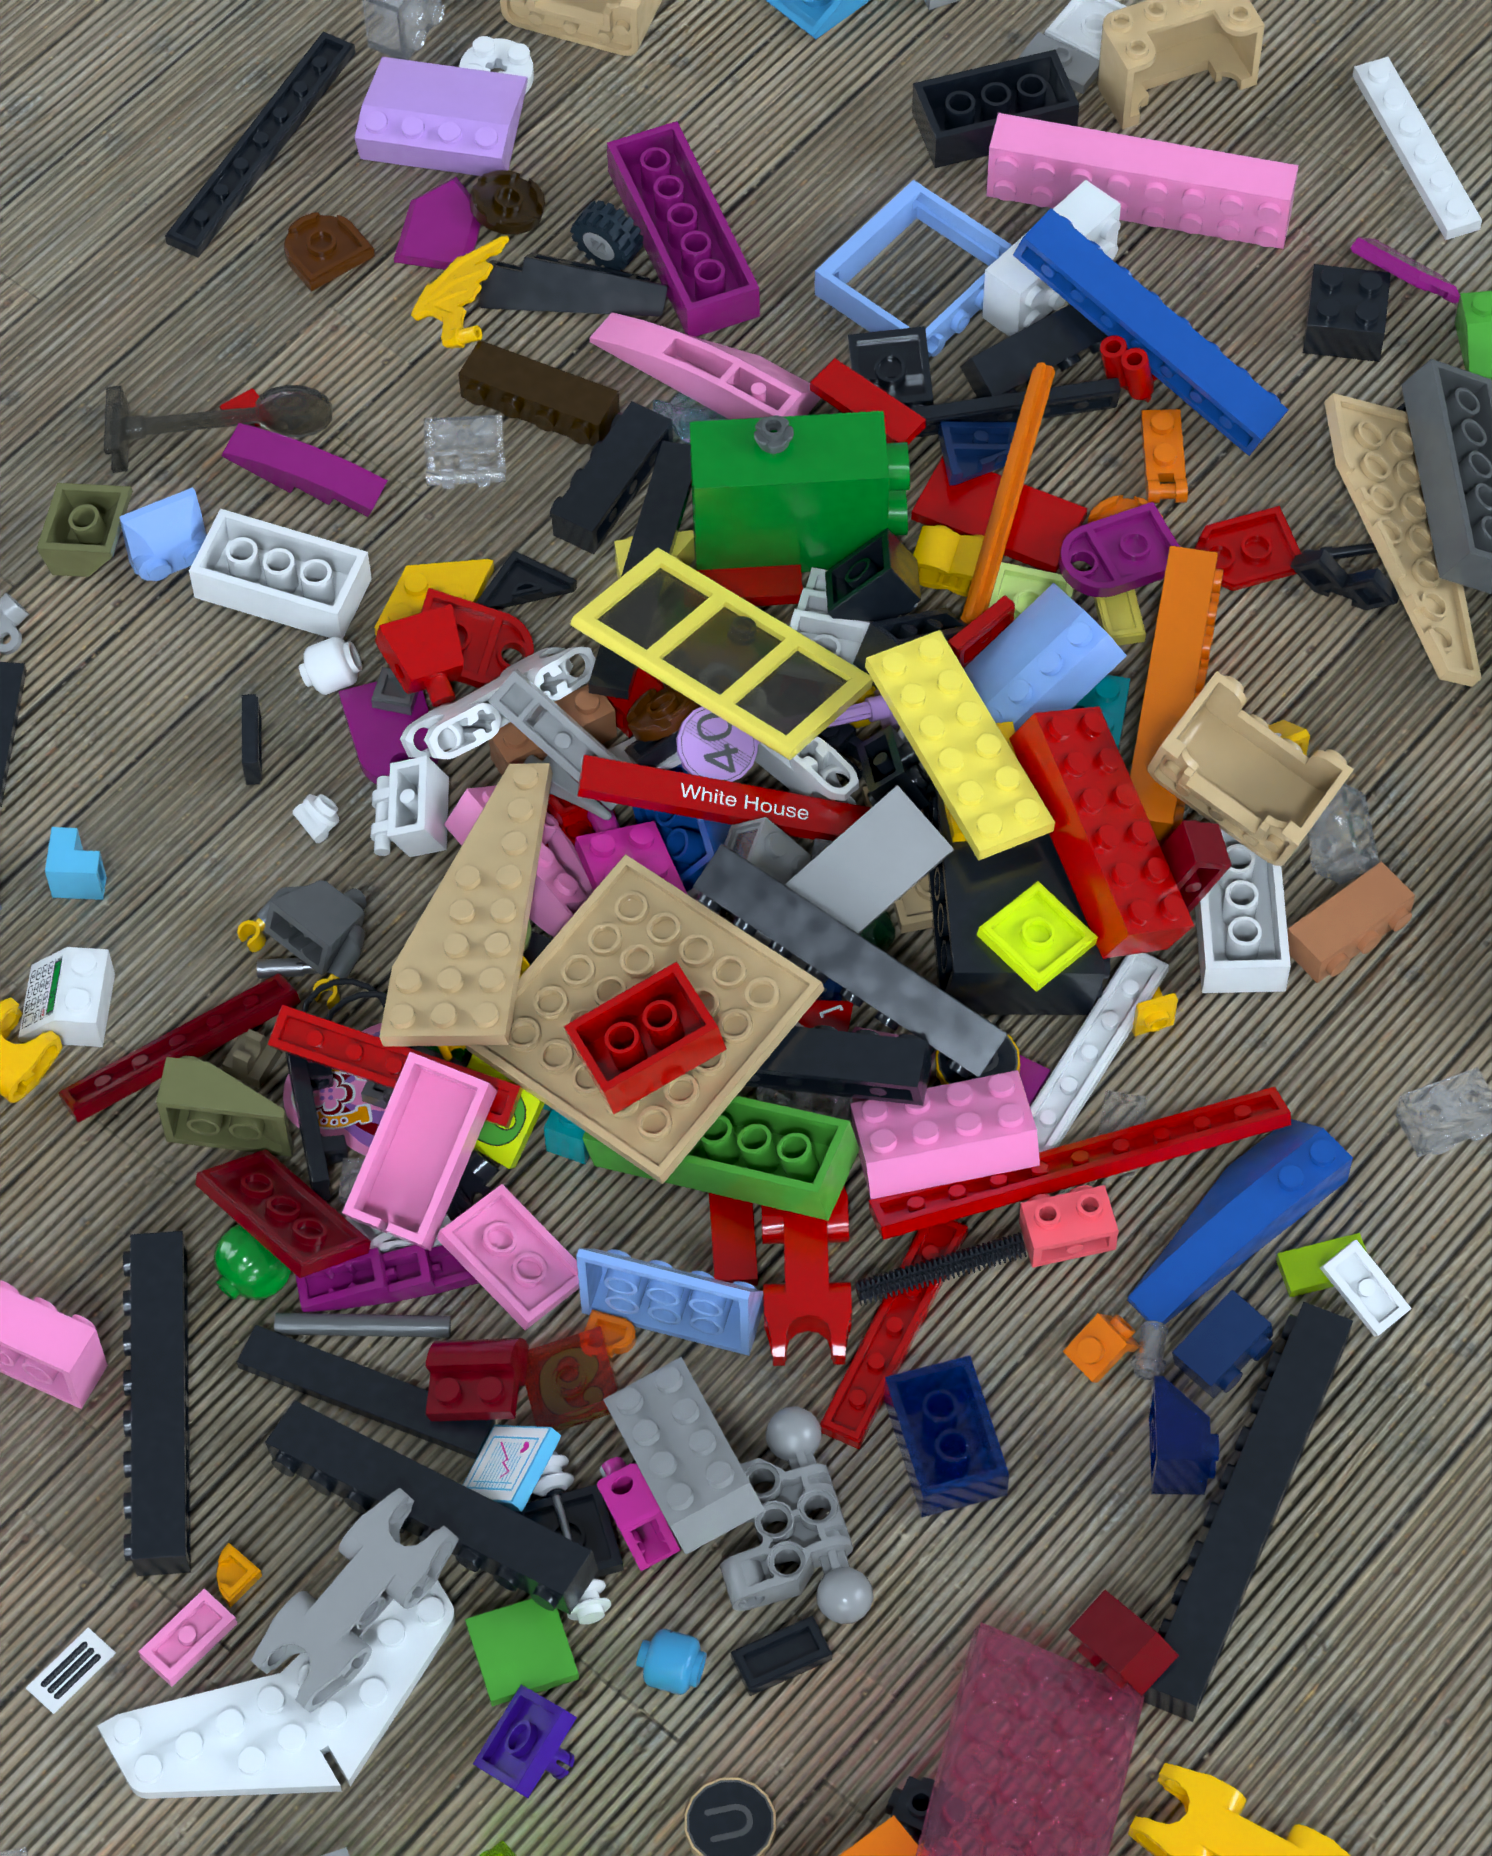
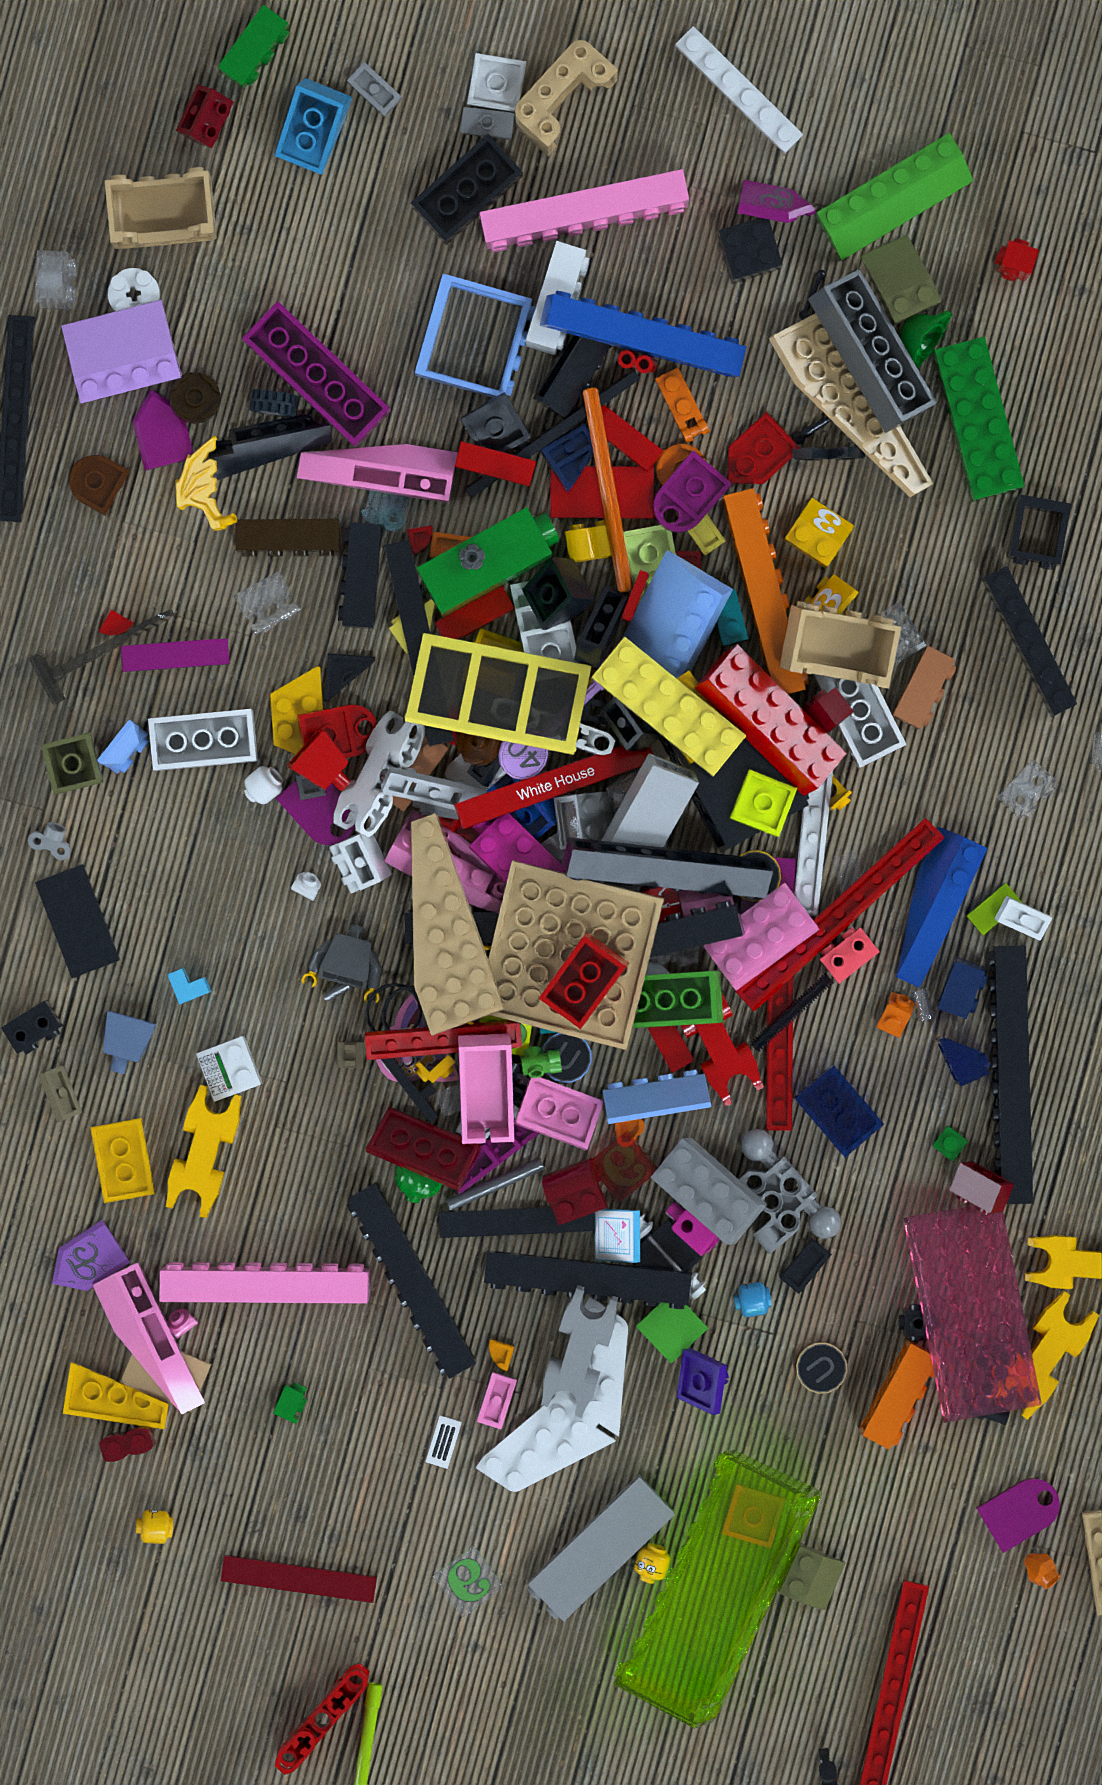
camera: 25 degrees left, 30 degrees up
(190, 1039) = (308, 1068): dark red tile -> none
(217, 1111) = (348, 1103): olive slope -> none
(251, 739) = (243, 855): black tile -> none
(359, 1125) = (442, 1069): none -> yellow bracket
(522, 1171) = (537, 1063): none -> bright green plate
(567, 1194) = (574, 1056): none -> black tile
(1069, 464) = (629, 440): none -> red tile
(1101, 1571) = (949, 1143): none -> green plate
(1281, 674) = (818, 533): none -> yellow slope

